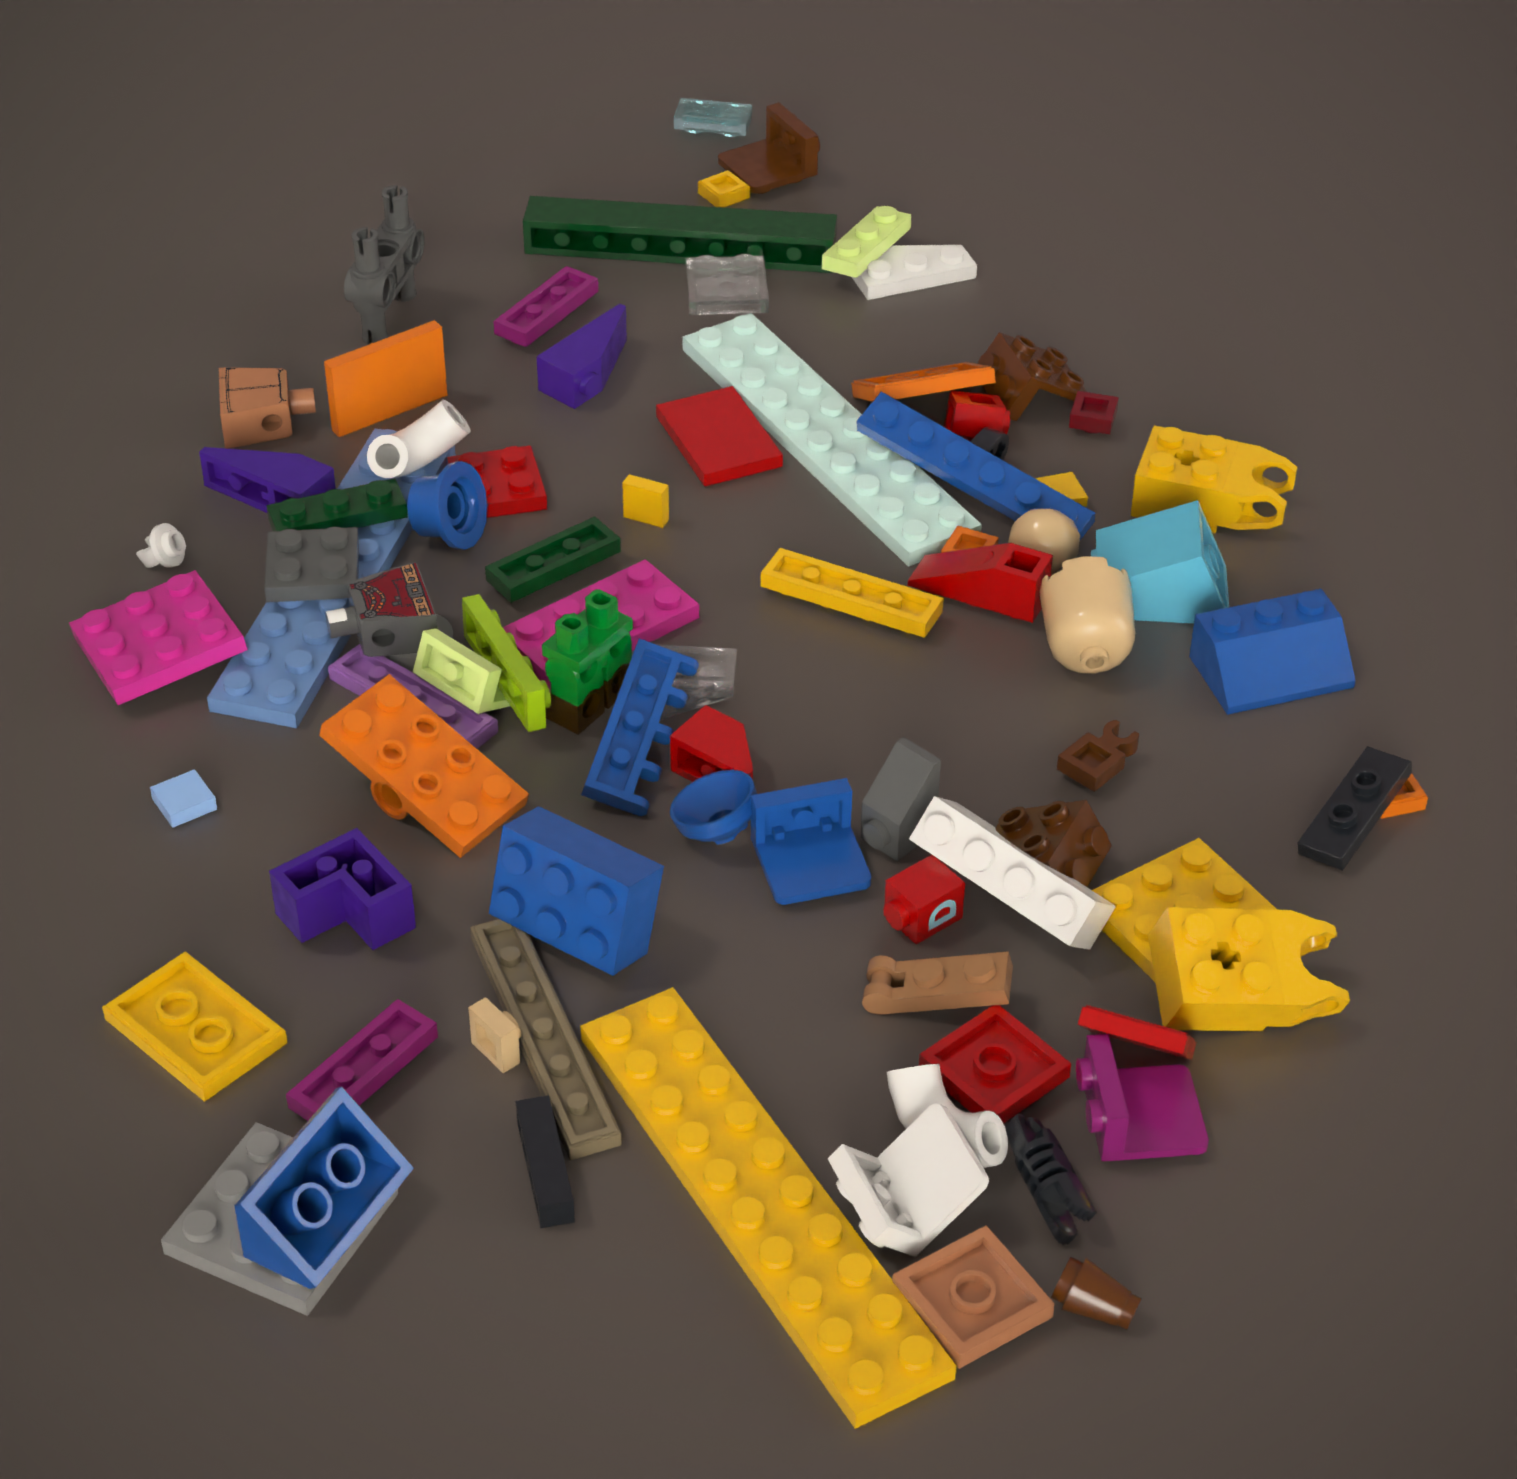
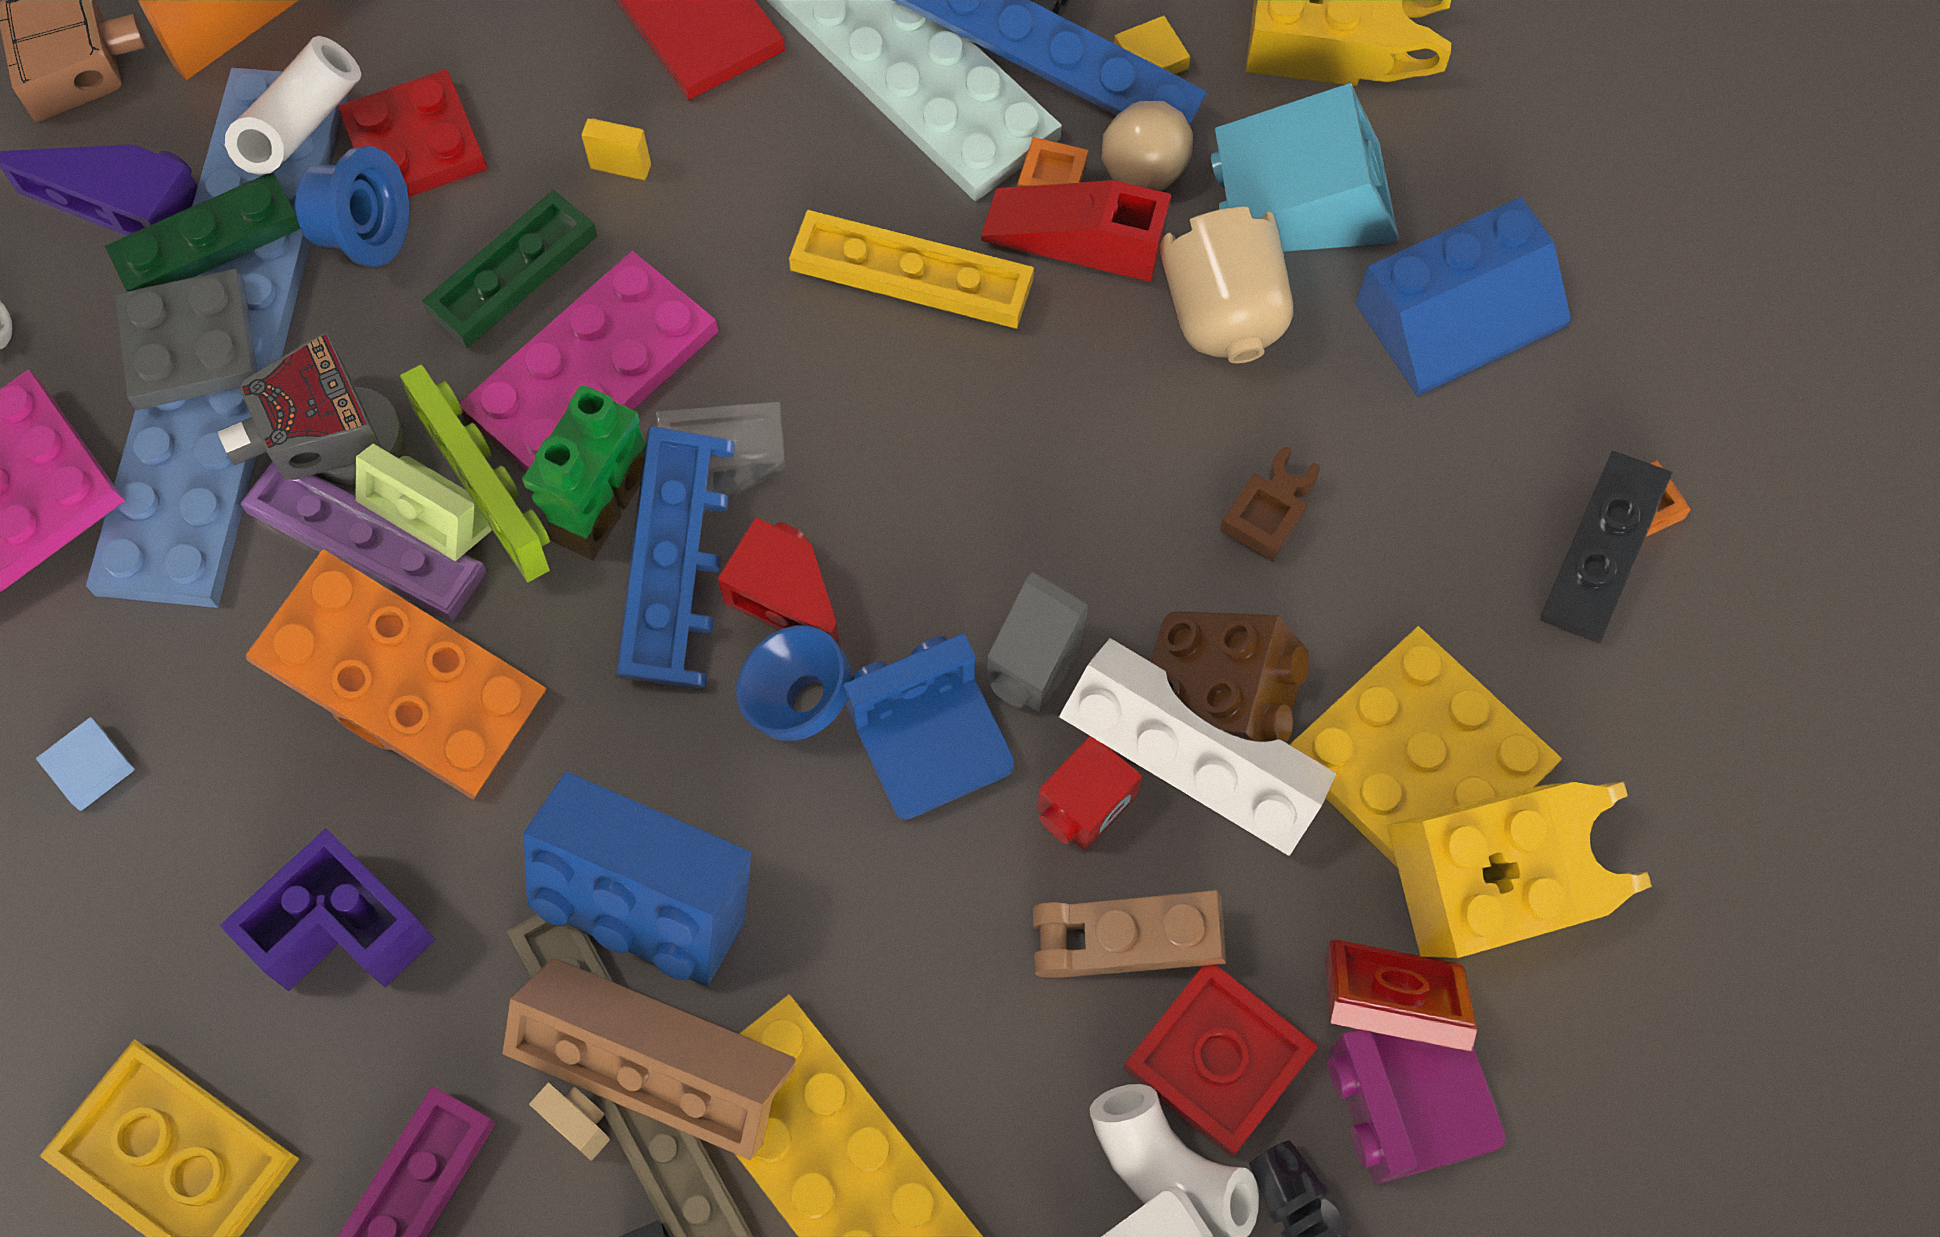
camera: 10 degrees left, 25 degrees up
(557, 998) = (646, 1056): none -> medium nougat panel

